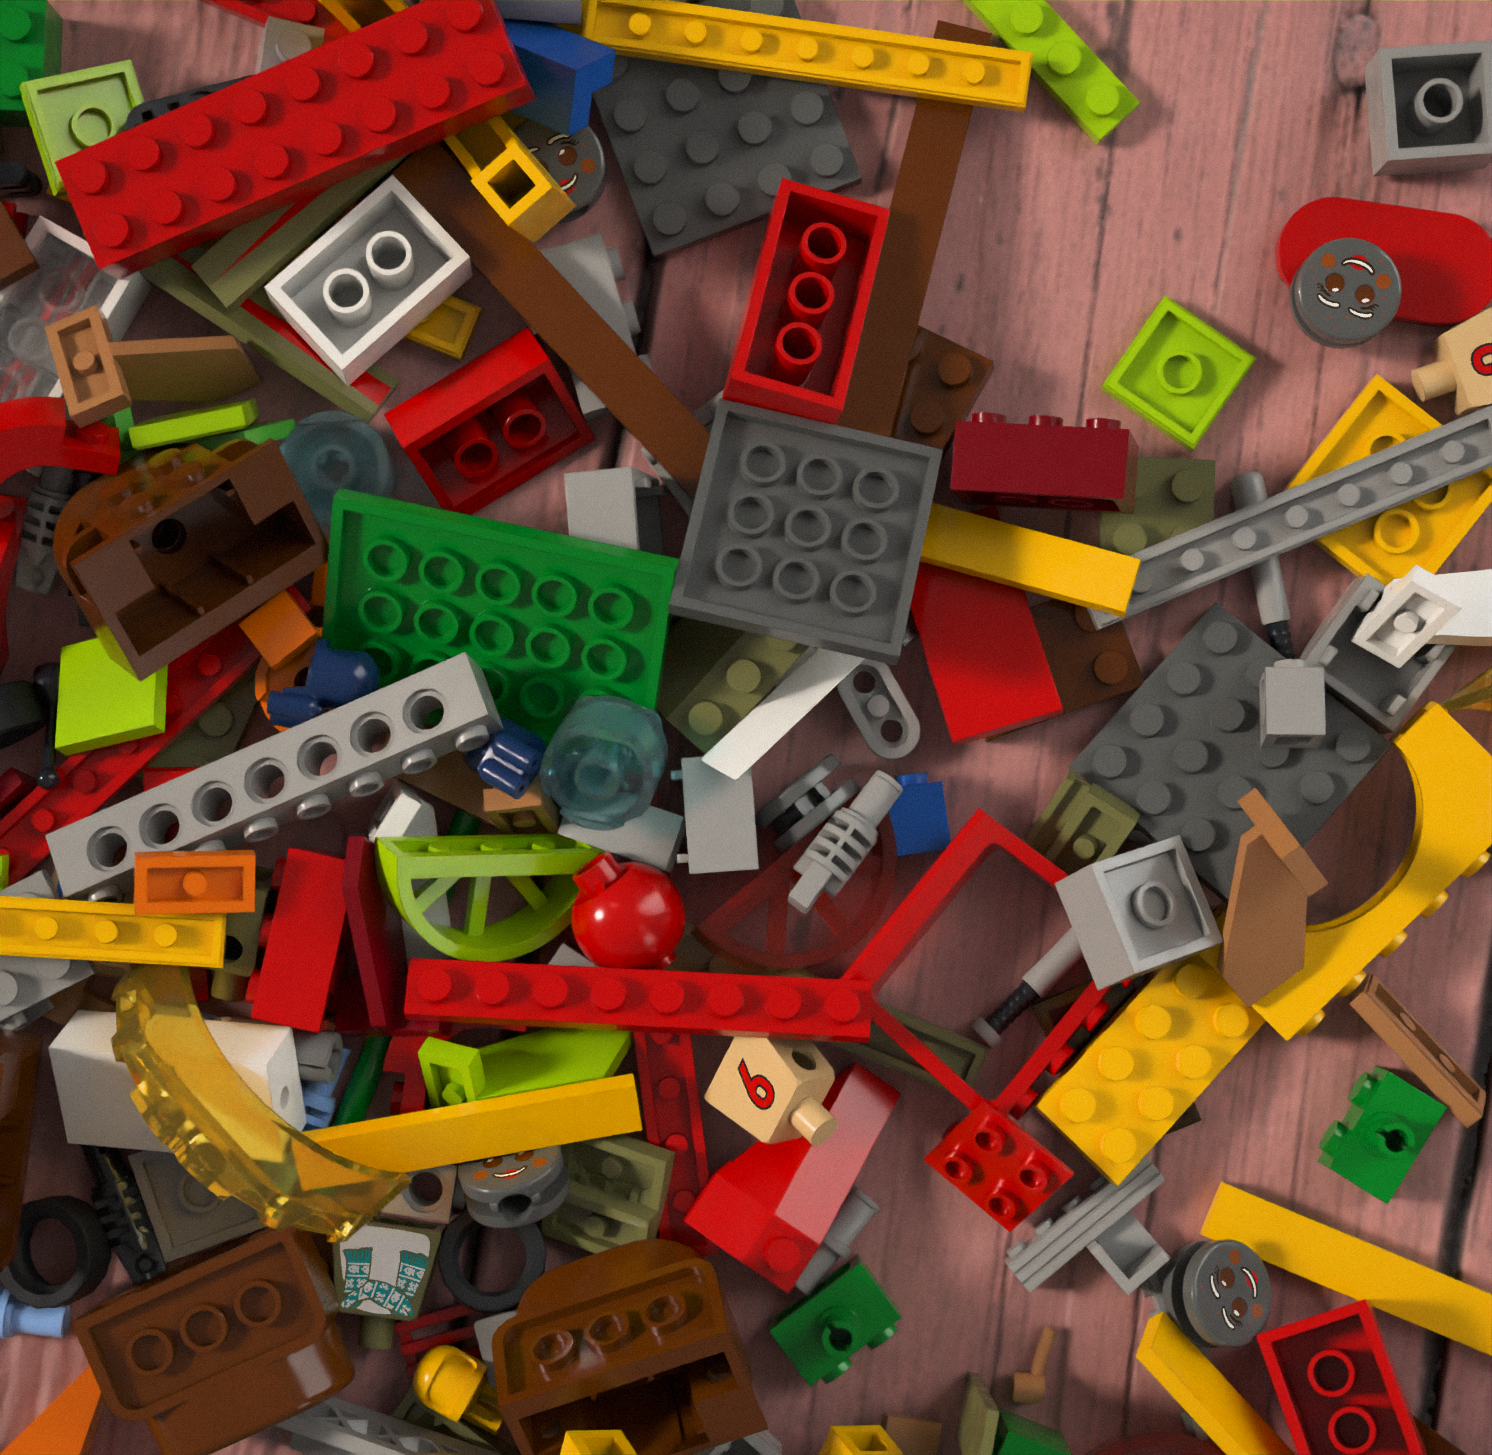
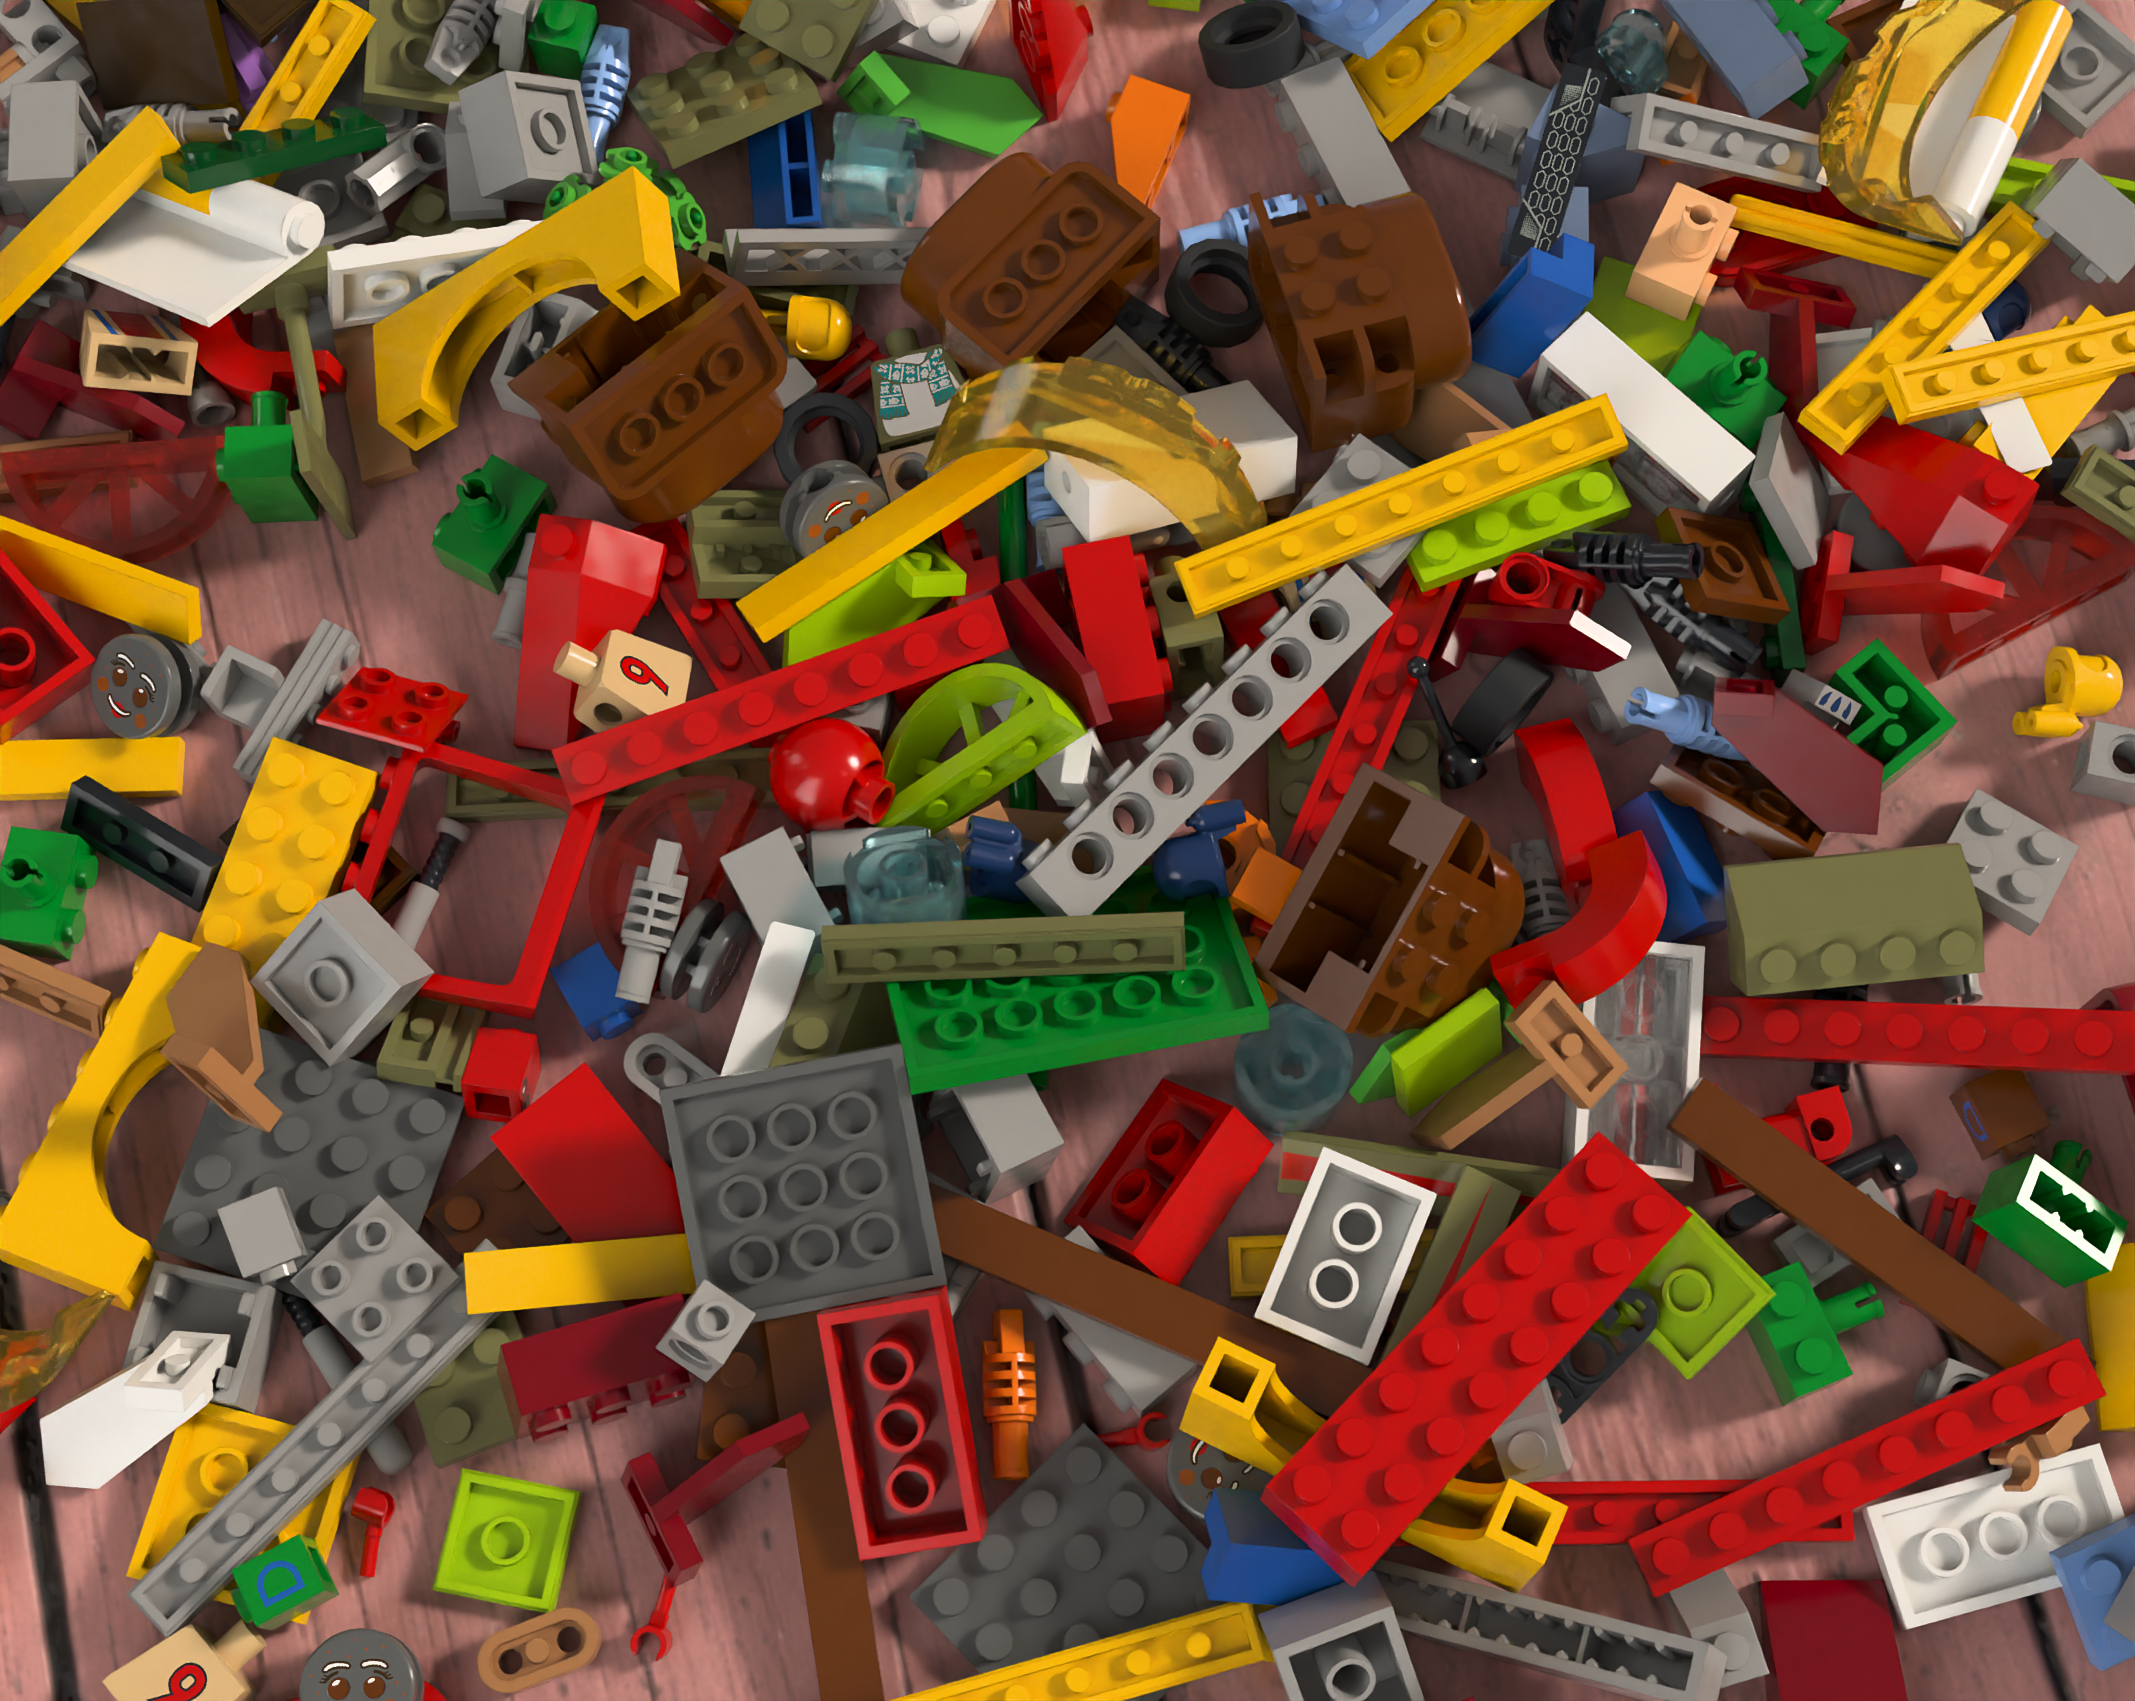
camera: 160 degrees right, 15 degrees down
(104, 702) = (1407, 747): lime tile -> none
(194, 882) = (1232, 619): orange plate -> none
(538, 663) = (1004, 947): none -> olive tile
(615, 230) = (1135, 1435): none -> red hand
(705, 308) = (1009, 1393): none -> orange hinge
(942, 435) = (705, 1330): none -> light grey brick
(1029, 776) = (500, 1074): none -> red brick
(1030, 1387) = (293, 544): medium nougat hand -> none
(1037, 326) = (667, 1513): none -> dark red piece
(1080, 248) = (657, 1622): none -> red hand
(1184, 266) = (541, 1650): none -> medium nougat plate
(1207, 633) = (375, 1279): none -> light grey hinge
(1273, 1143) = (141, 842): none -> black plate
(1279, 448) = (377, 1509): none -> red hand
(1380, 404) = (282, 1583): none -> green brick

